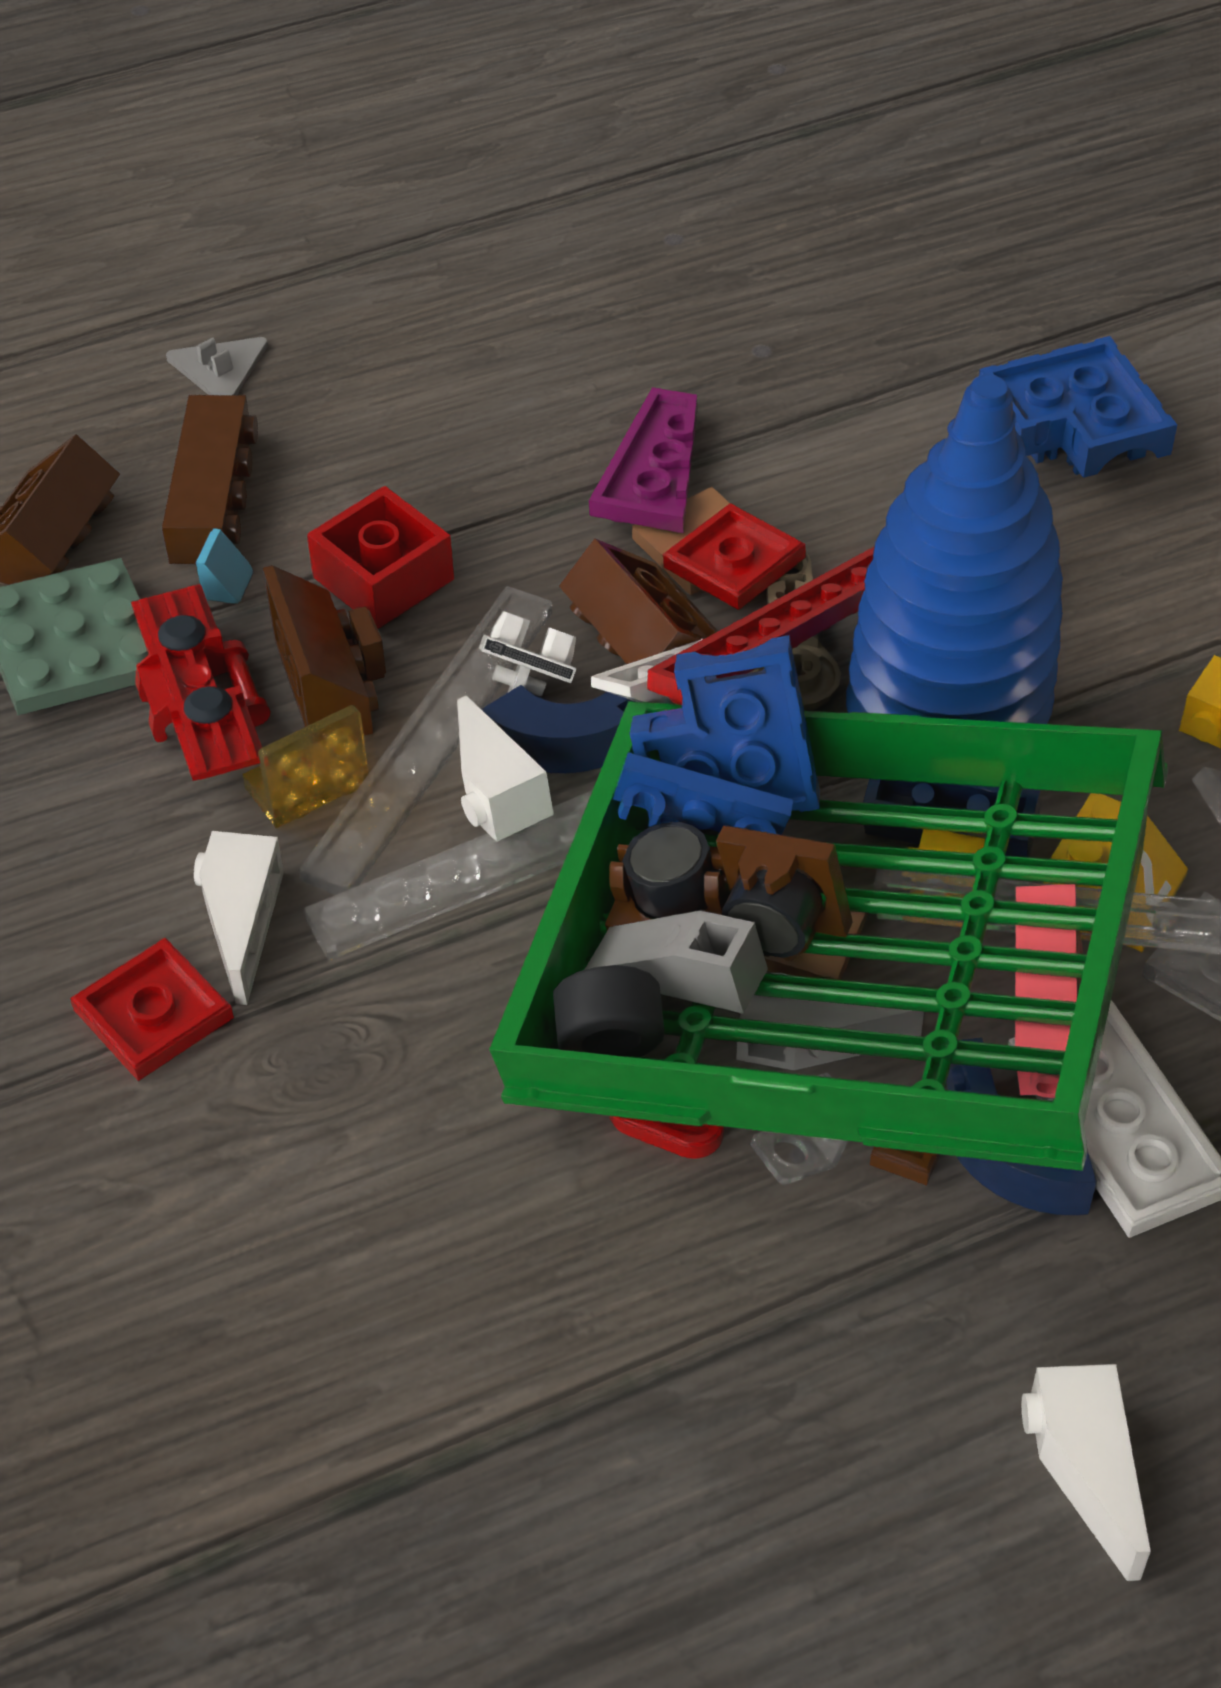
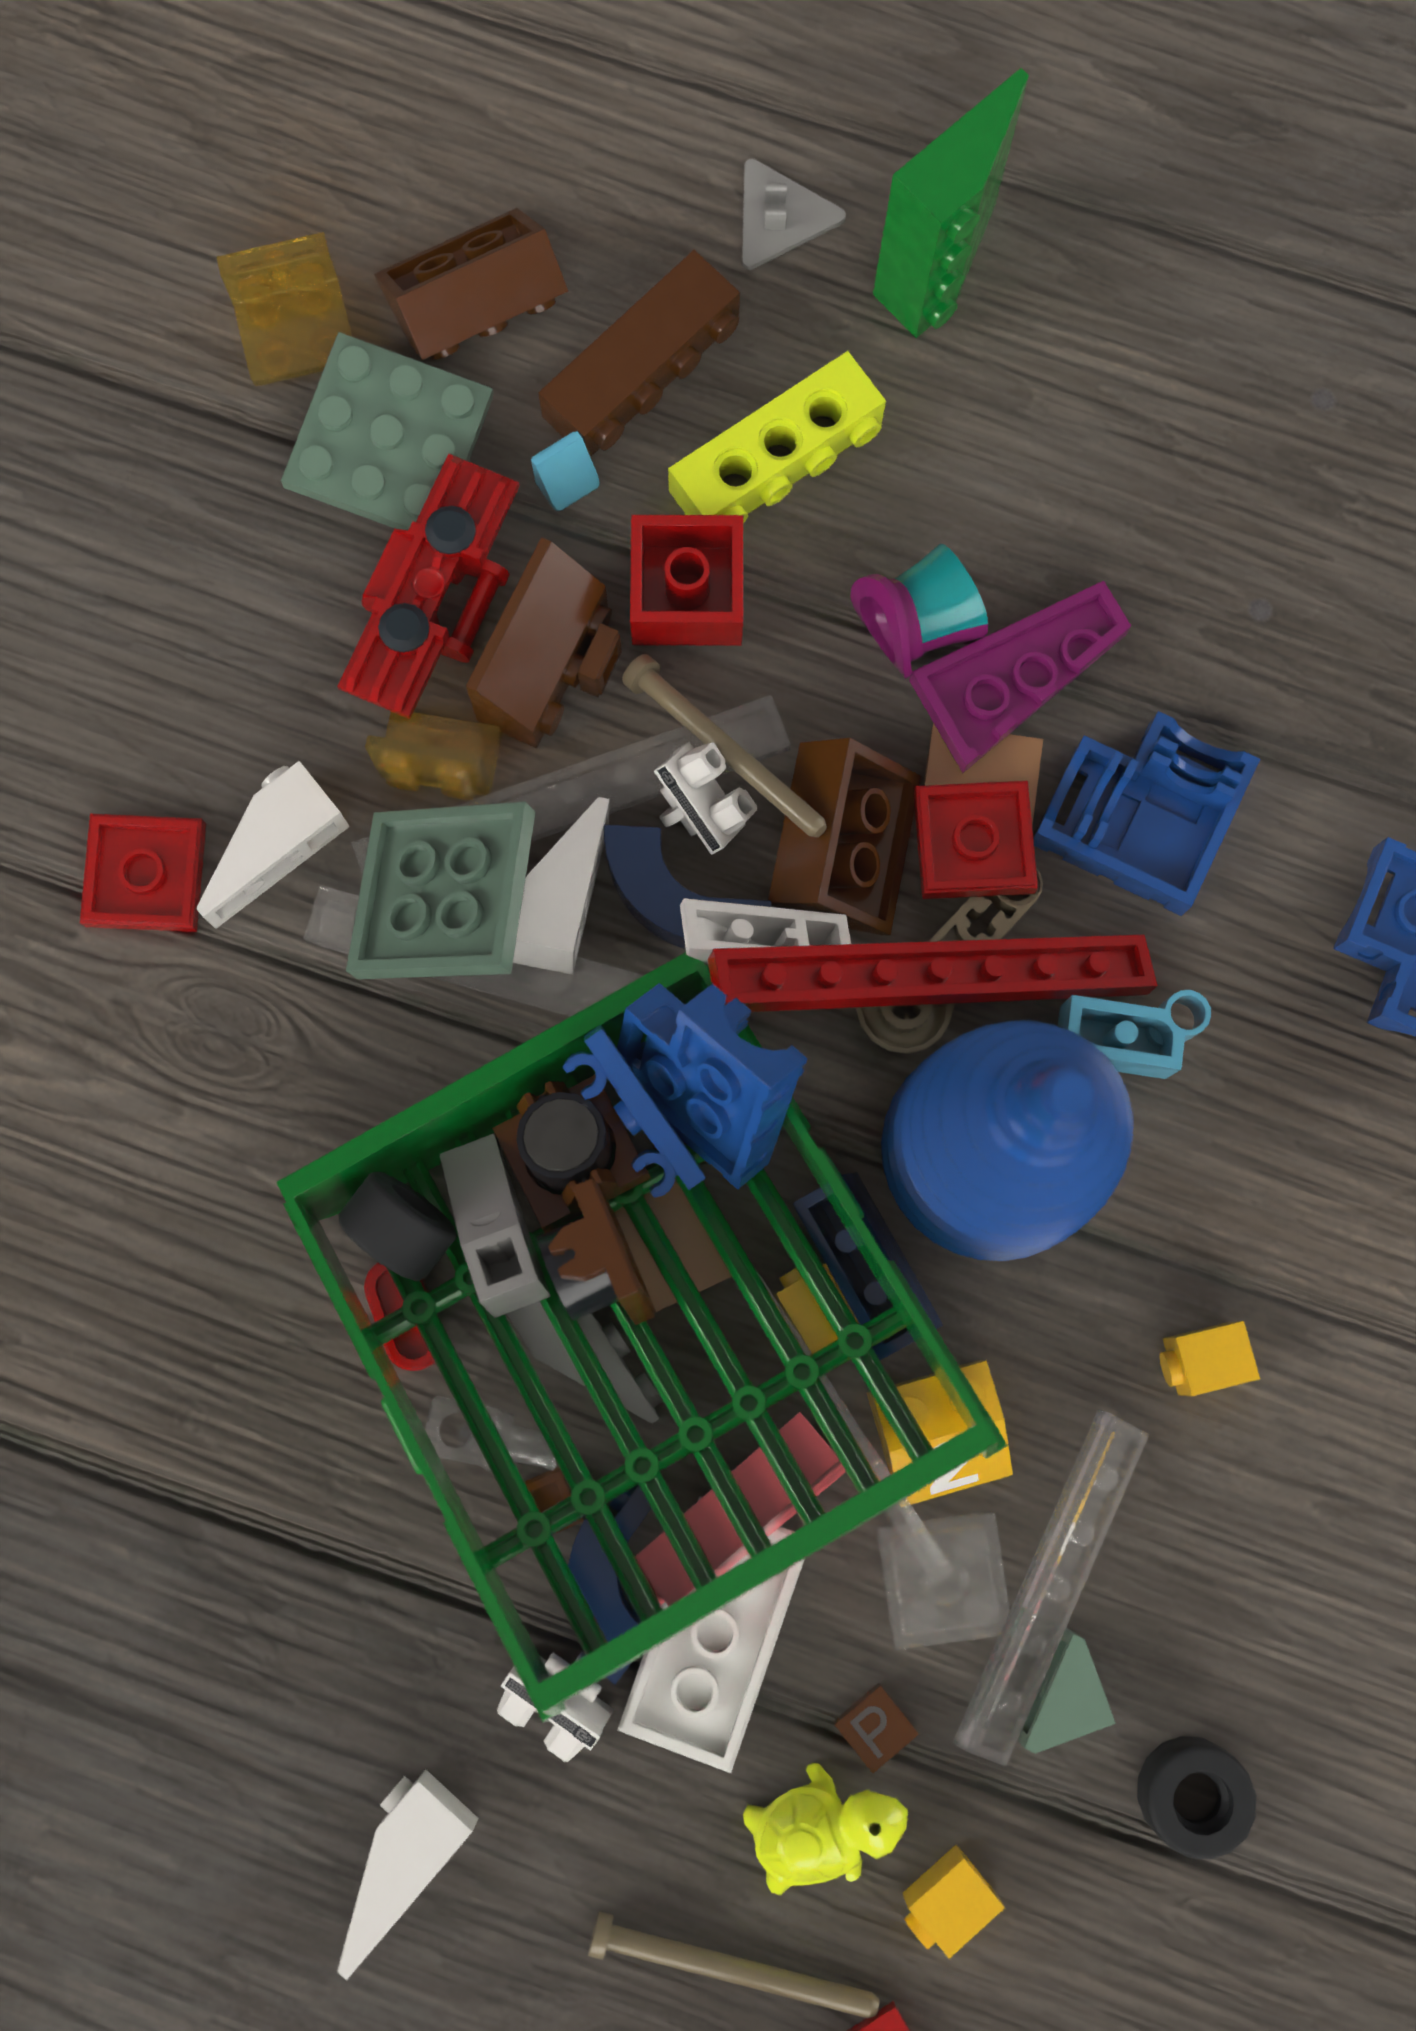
camera: 40 degrees right, 30 degrees up
(351, 260) = (942, 210): none -> green slope
(360, 449) = (834, 391): none -> neon yellow brick
(407, 634) = (643, 676): none -> dark tan bar
(410, 813) = (441, 892): none -> sand green plate
(553, 469) = (921, 608): none -> hat
(820, 474) = (1148, 817): none -> blue piece
(1041, 1253) = (572, 1728): none -> white hips

